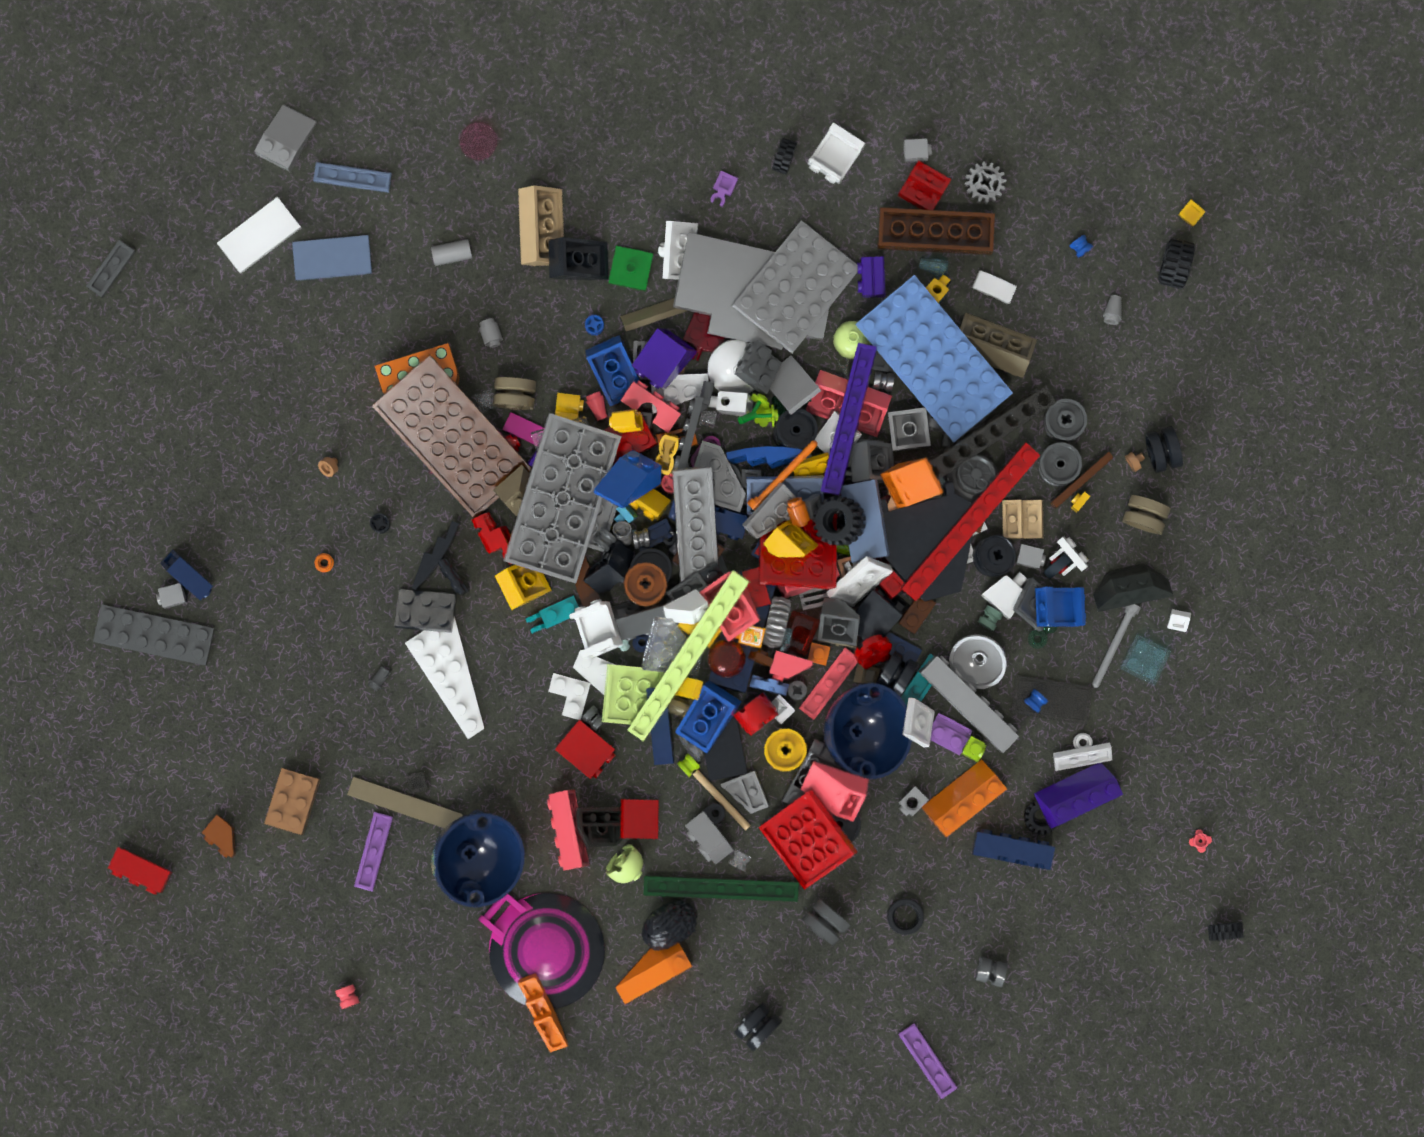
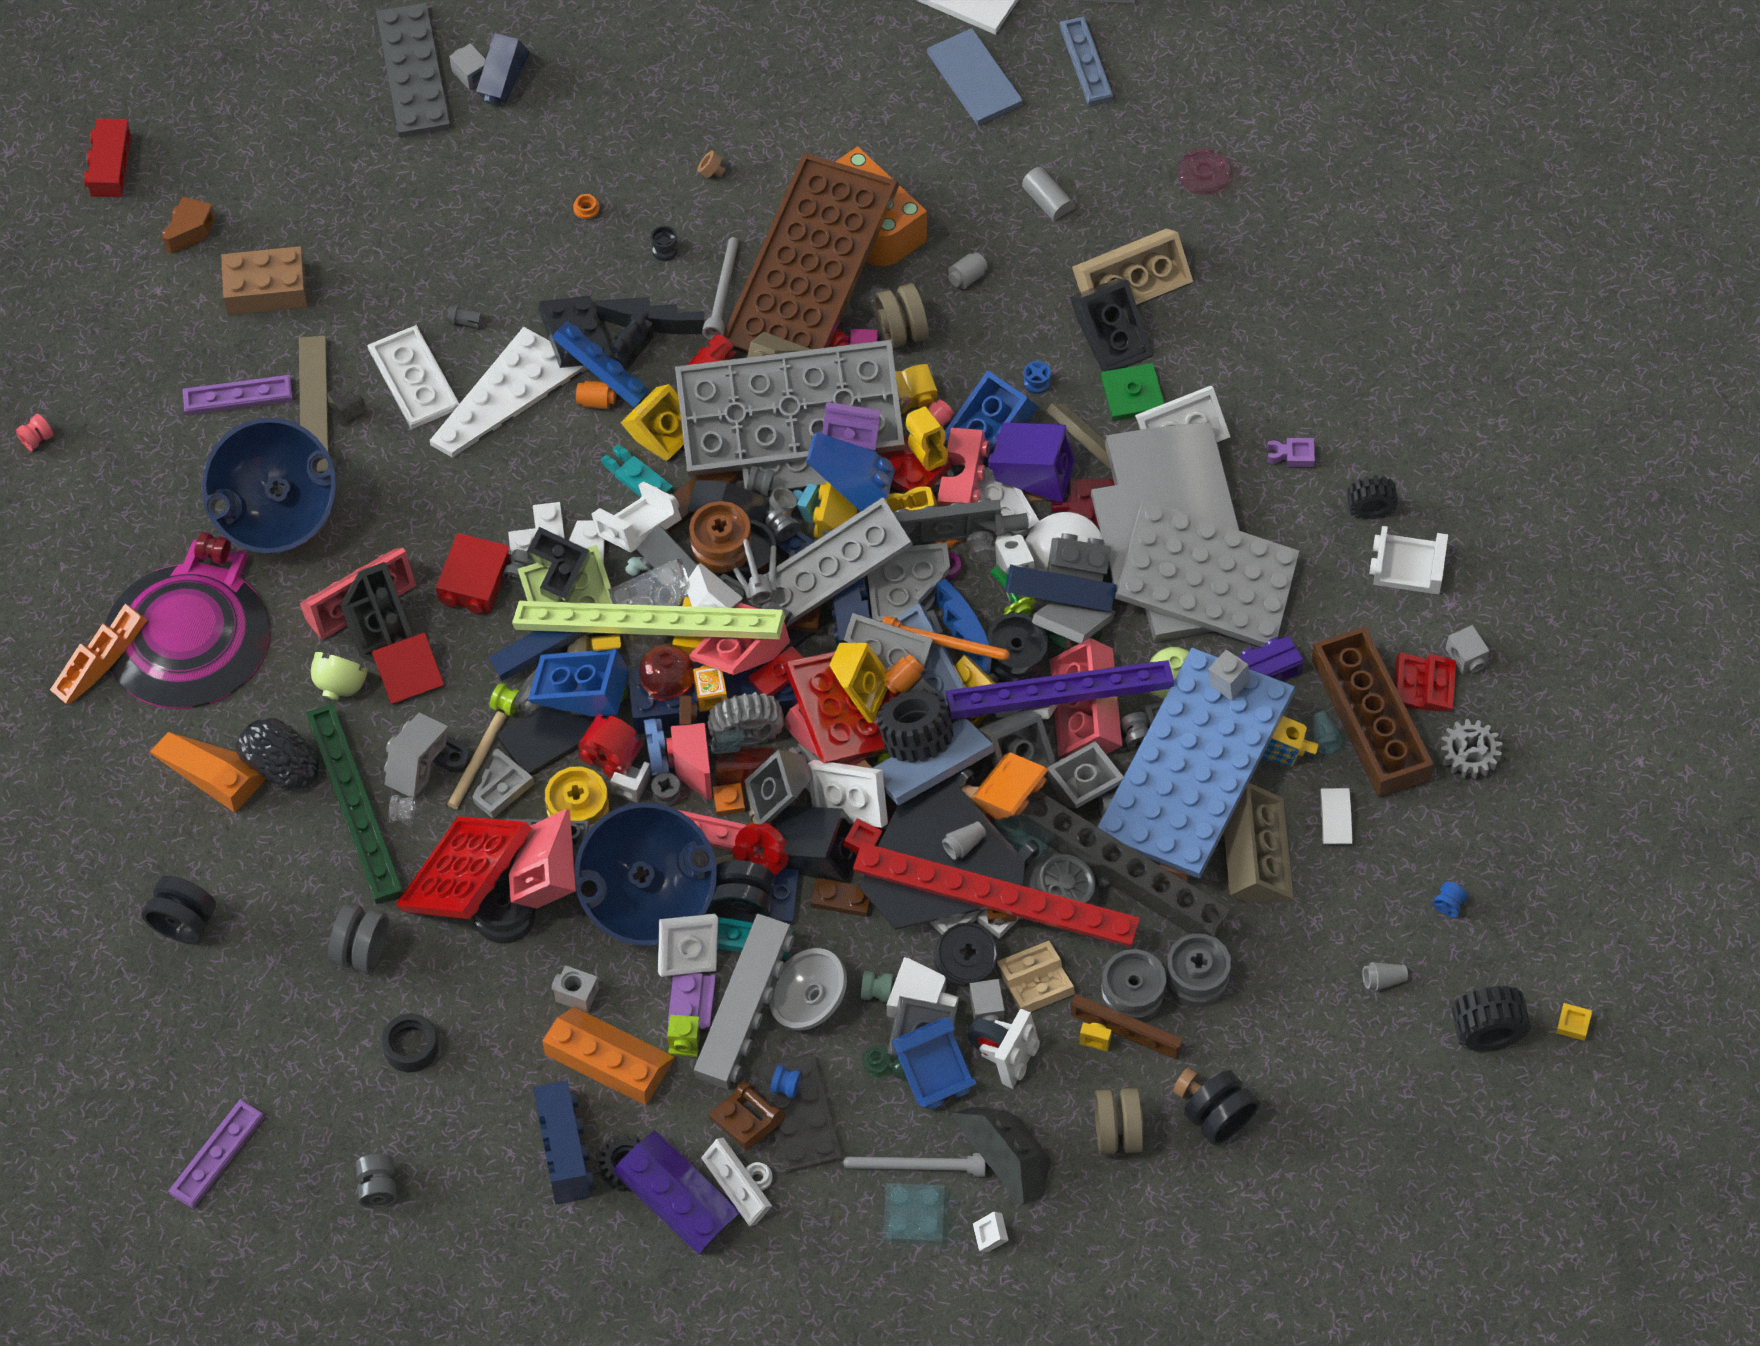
camera: 70 degrees right, 25 degrees down
(410, 730) = (413, 377): none -> white tile
(463, 518) = (714, 324): none -> light grey piece
(465, 605) = (600, 364): none -> blue plate
(481, 616) = (595, 395): none -> orange brick
(497, 912) = (212, 547): none -> dark red wheel
(600, 465) = (852, 424): none -> medium lavender plate
(619, 691) = (564, 560): none -> black brick
(693, 575) = (759, 588): none -> light grey plant
(772, 385) = (1060, 587): none -> dark blue tile
(894, 312) = (1229, 674): none -> light grey brick
(928, 525) = (963, 840): none -> light grey cone
(1044, 739) = (742, 1124): none -> reddish brown plate

